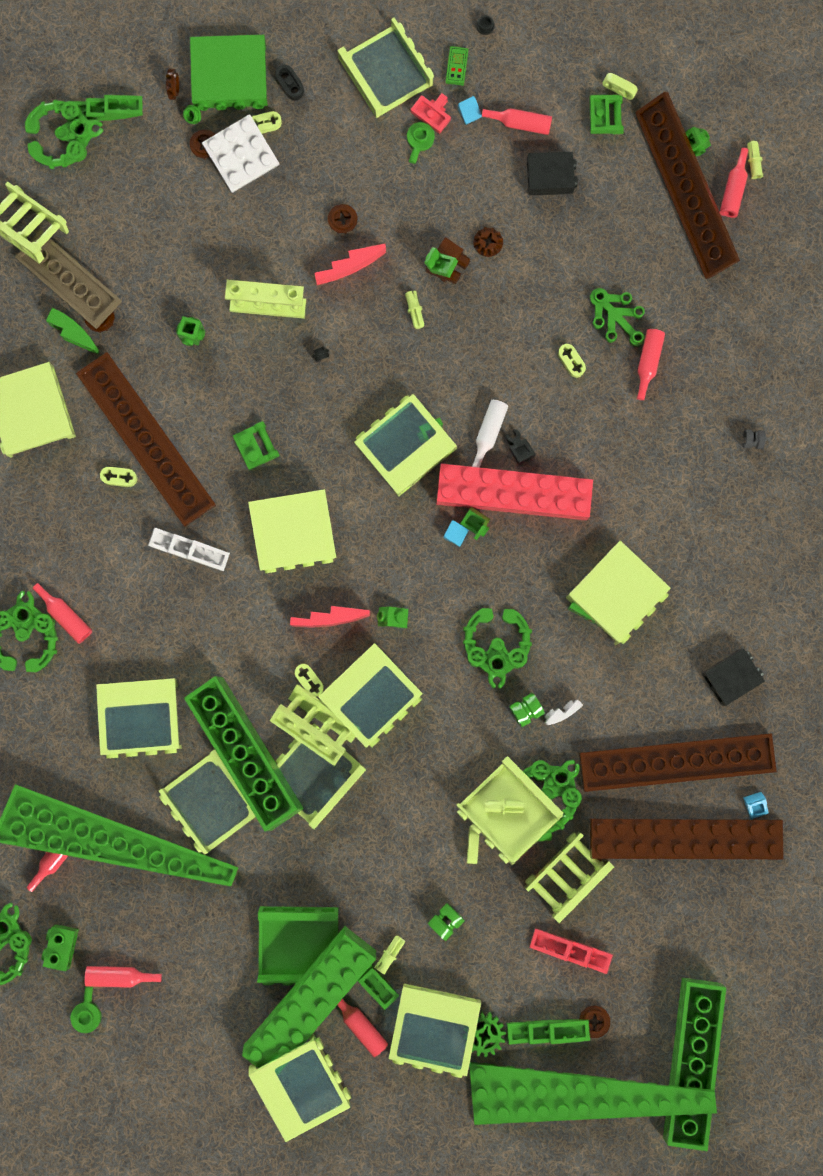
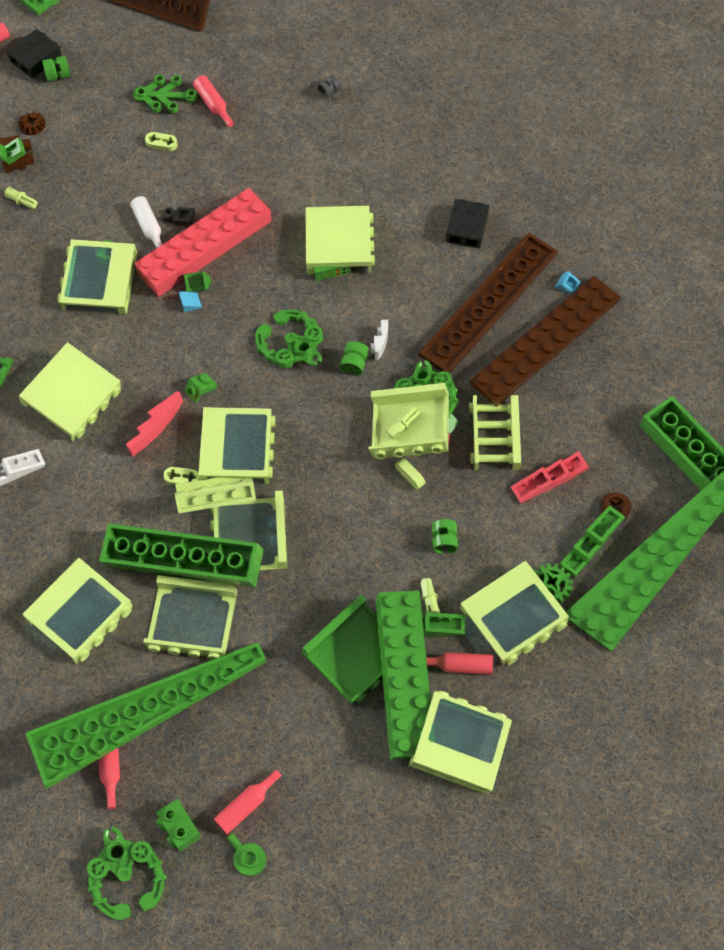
camera: 35 degrees left, 20 degrees down
(549, 202) = (50, 68): none -> bright green wheel

